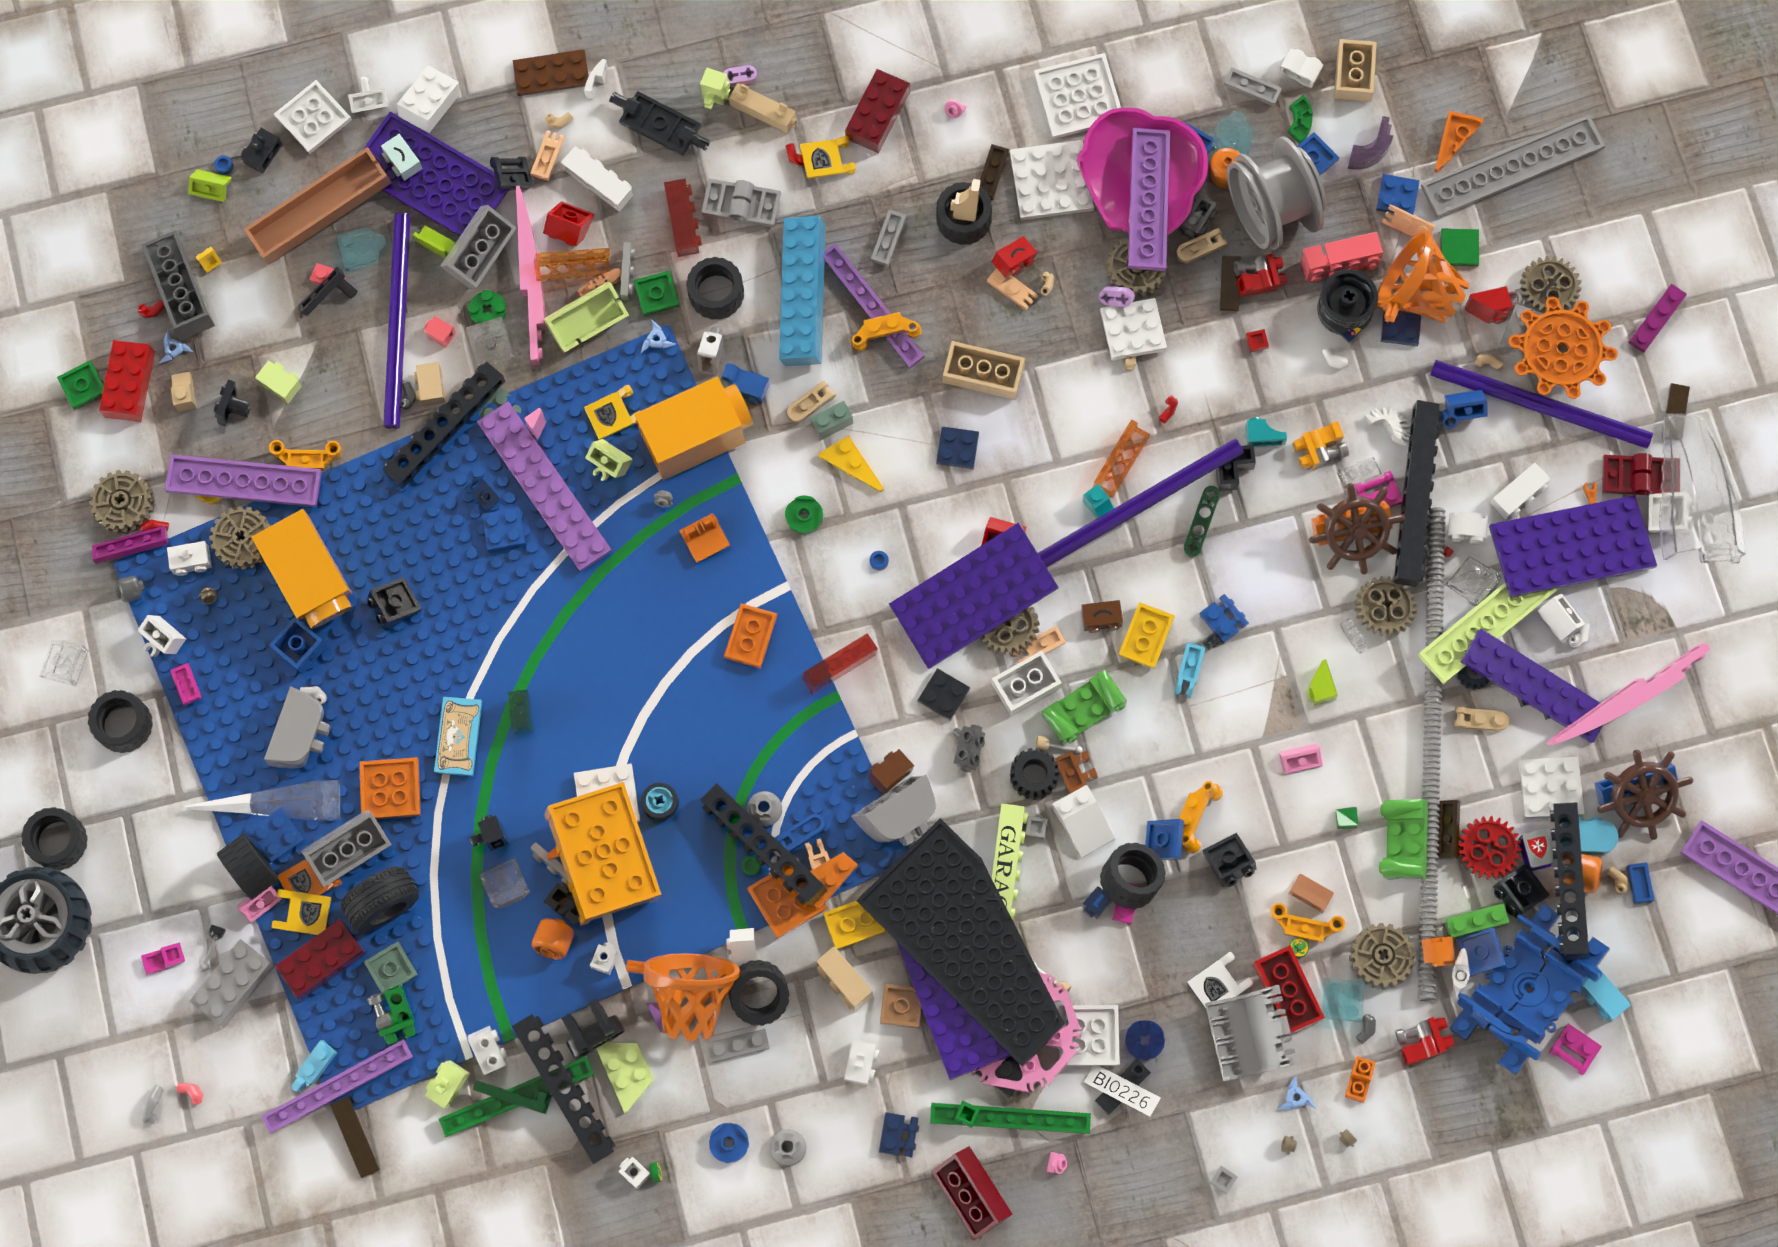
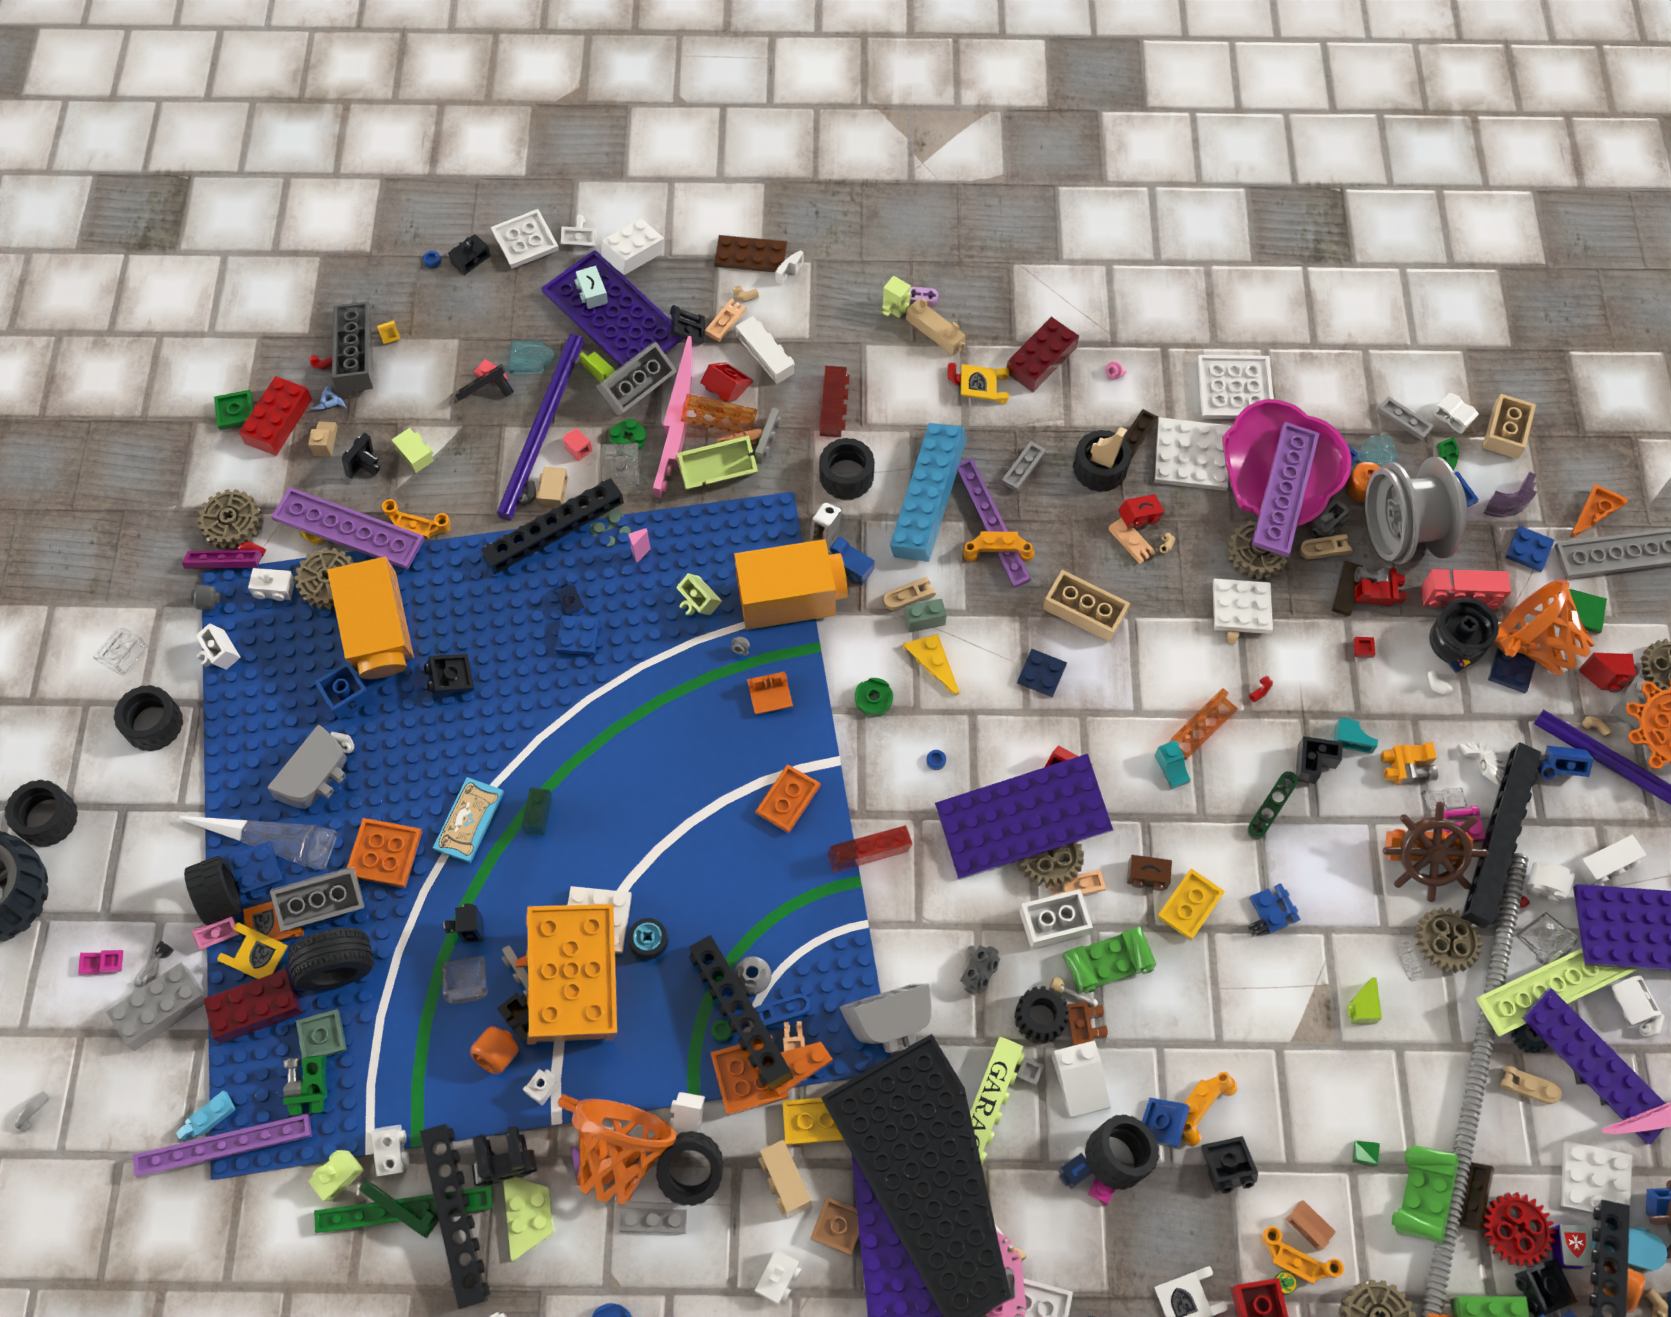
camera: 10 degrees right, 10 degrees down
(186, 684) = (224, 700): dark pink plate -> none
(192, 1090) = (77, 1108): coral arm -> none
(208, 185) = (411, 272): lime panel -> none
(208, 595) = (276, 623): dark tan plate -> none
(317, 205) = (501, 309): nougat piece -> none
(355, 1137) = (222, 1206): dark brown tile -> none
(544, 486) = (630, 607): medium lavender plate -> none
(610, 413) = (713, 555): yellow flag -> none
(656, 293) = (790, 461): green plate -> none
(657, 344) = (780, 493): light blue piece -> none
(659, 122) = (836, 317): black plate -> none
(741, 202) = (893, 402): light grey plate -> none
(890, 771) = (892, 972): reddish brown brick -> none
(943, 694) = (967, 908): black plate -> none
(1116, 296) = (1234, 567): lavender beam -> none
(1141, 502) = (1217, 769): dark purple axle -> none
(1190, 667) = (1229, 949): medium azure hinge -> none
(1301, 758) = (1327, 1075): bright pink slope -> none
(1406, 222) = (1532, 573): light nougat hinge -> none

